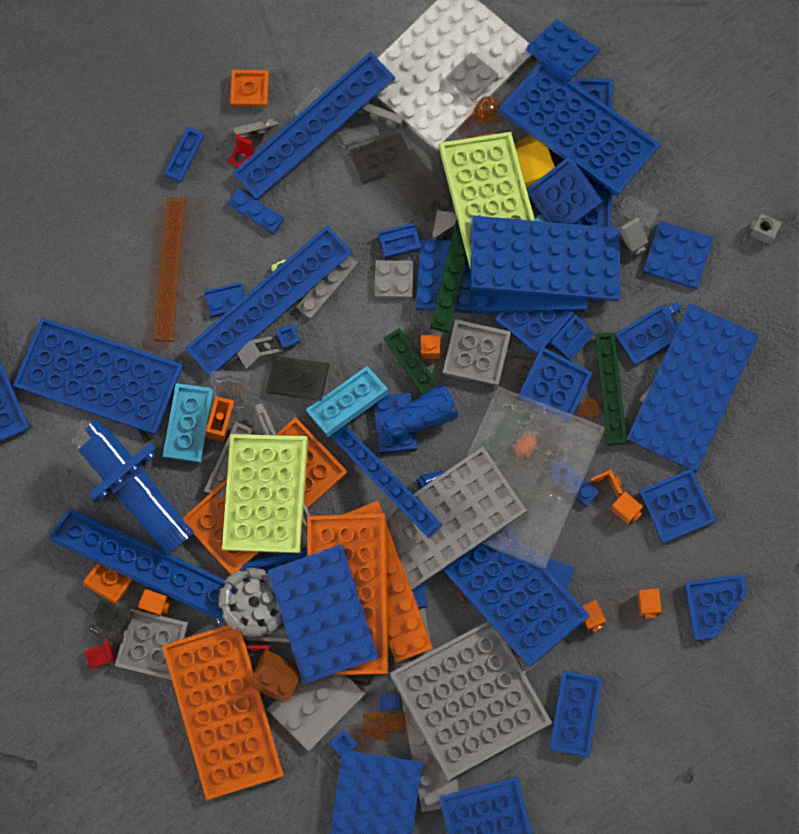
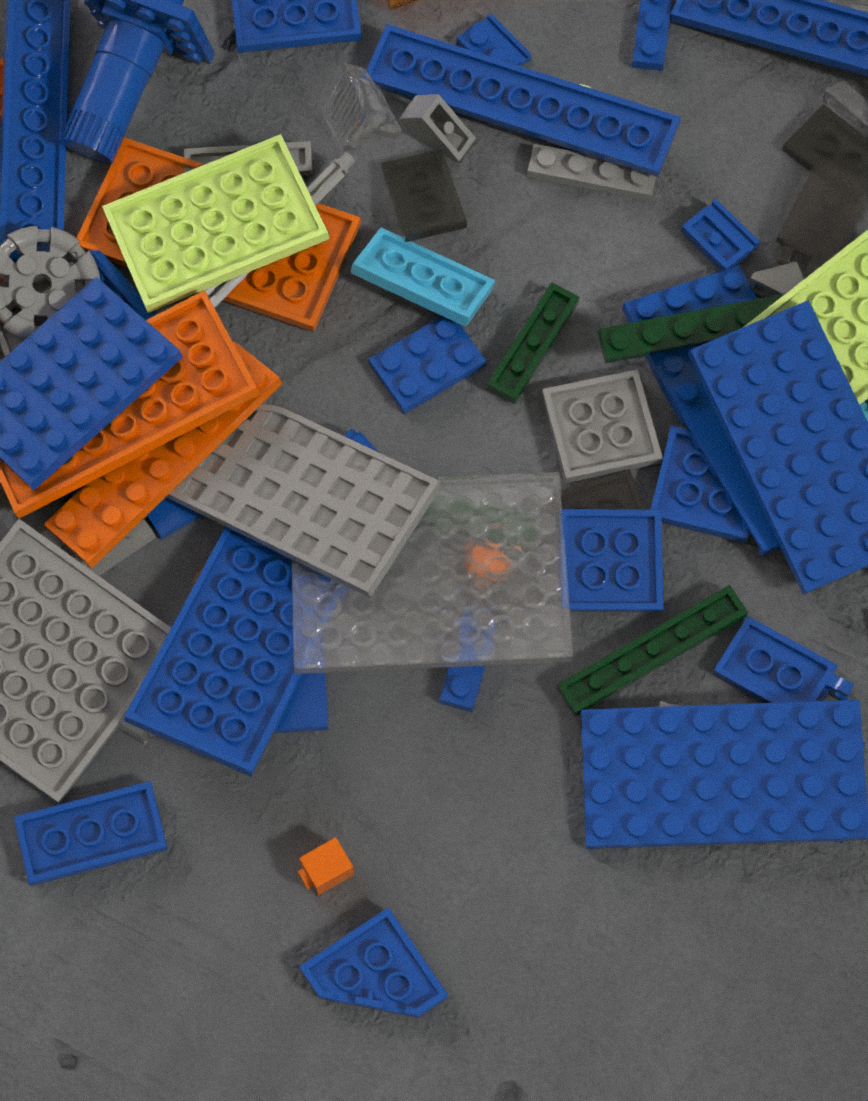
camera: 60 degrees right, 5 degrees down
(188, 423) = (275, 83): medium azure plate -> none
(219, 419) = (300, 115): orange slope -> none
(288, 336) = (481, 153): blue plate -> none
(387, 481) = (317, 380): blue plate -> none
(394, 279) = (654, 258): light grey plate -> none
(427, 411) = (465, 391): blue cone -> none
(430, 347) = (572, 353): orange brick -> none
(572, 337) = (705, 554): blue plate -> none
(589, 408) = (604, 633): clear orange plate -> none
(596, 617) = (261, 789): orange brick -> none
(614, 481) = (501, 722): orange bracket -> none
(627, 508) = (466, 762): orange brick -> none
(677, 506) = (511, 840): blue plate -> none

